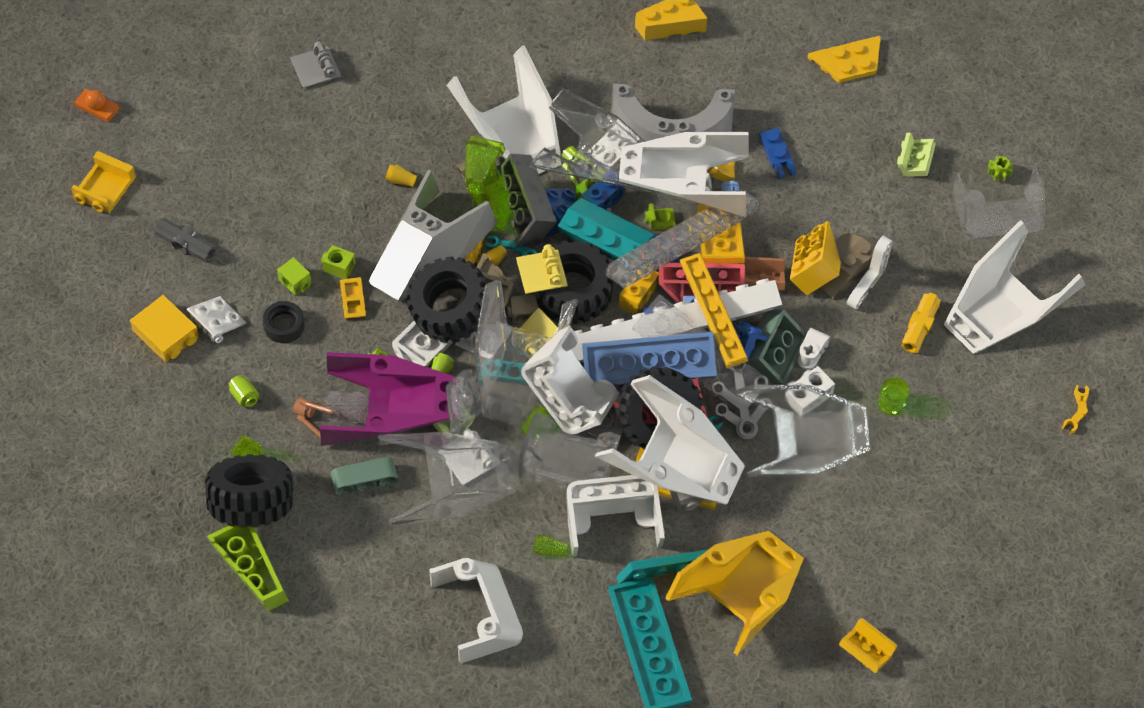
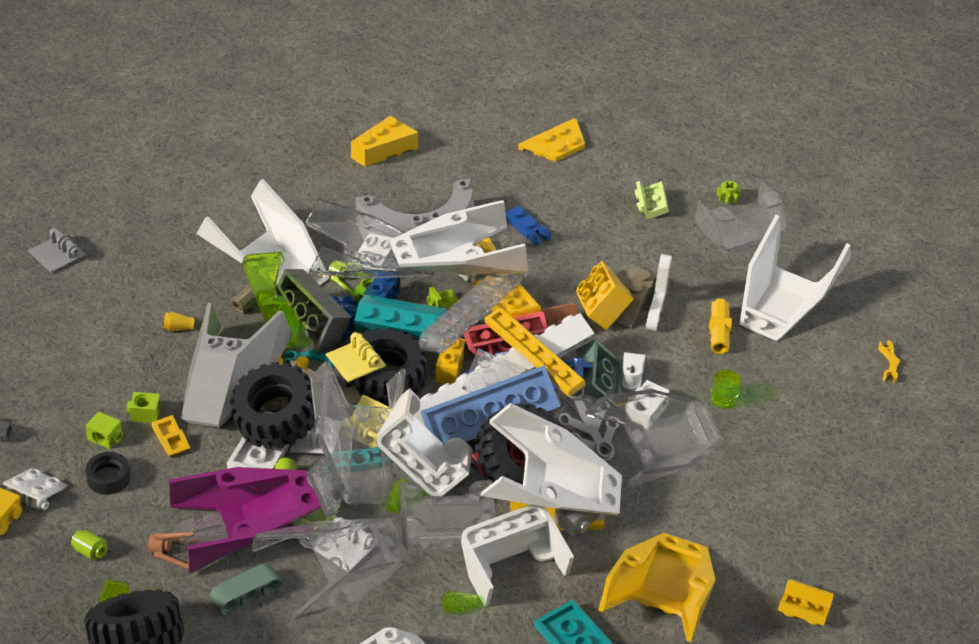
camera: 20 degrees left, 15 degrees down
(657, 566) = (575, 587): teal wing -> none

